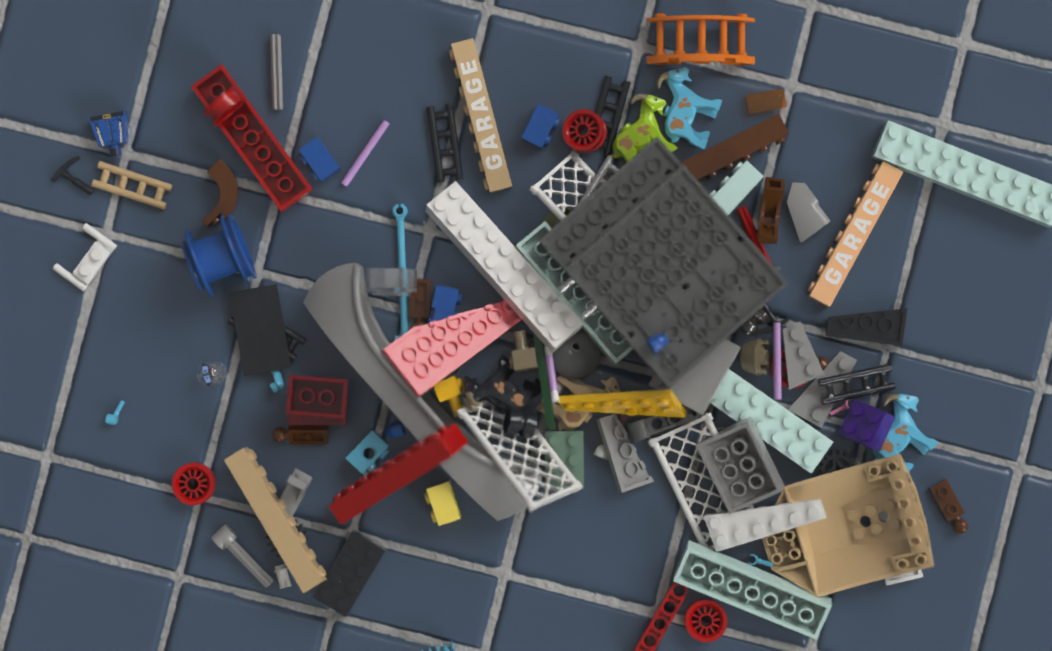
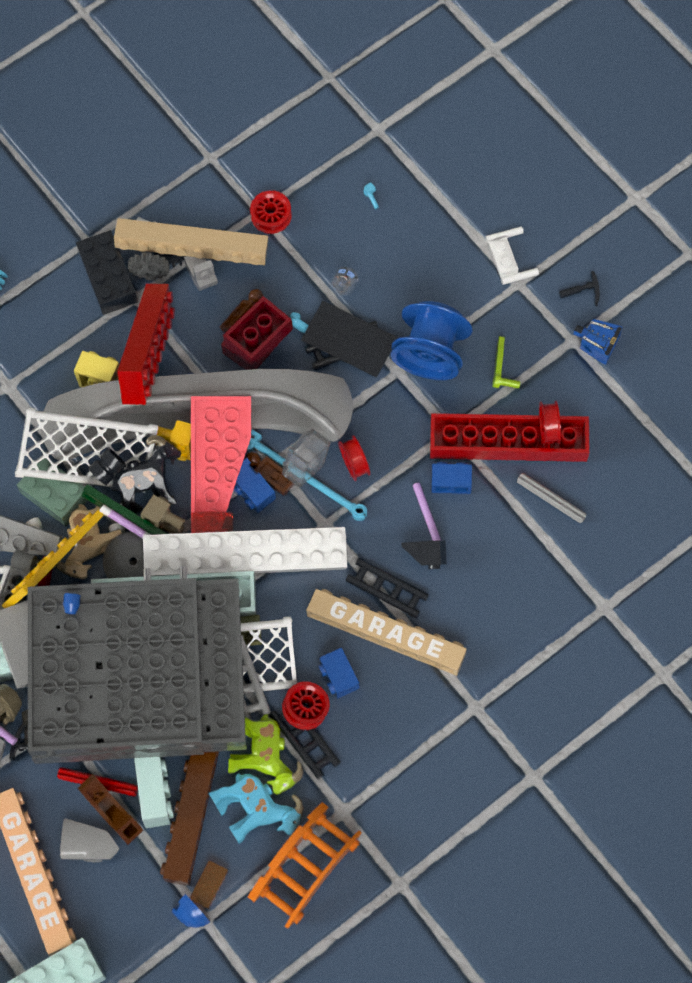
camera: 130 degrees right, 20 degrees down
(142, 179) = (546, 316): tan bar -> none
(205, 187) = (497, 380): none -> lime piece
(225, 538) = (209, 205): light grey axle -> none
(228, 193) = (483, 394): reddish brown arch -> none
(321, 540) = (148, 266): none -> dark grey gear
(358, 458) = (183, 340): medium azure brick -> none
(362, 244) = (354, 458): none -> red wheel
(395, 132) = (427, 552): none -> black slope
(502, 308) = (211, 522): none -> clear red slope
(796, 98) = (189, 913): none -> blue brick

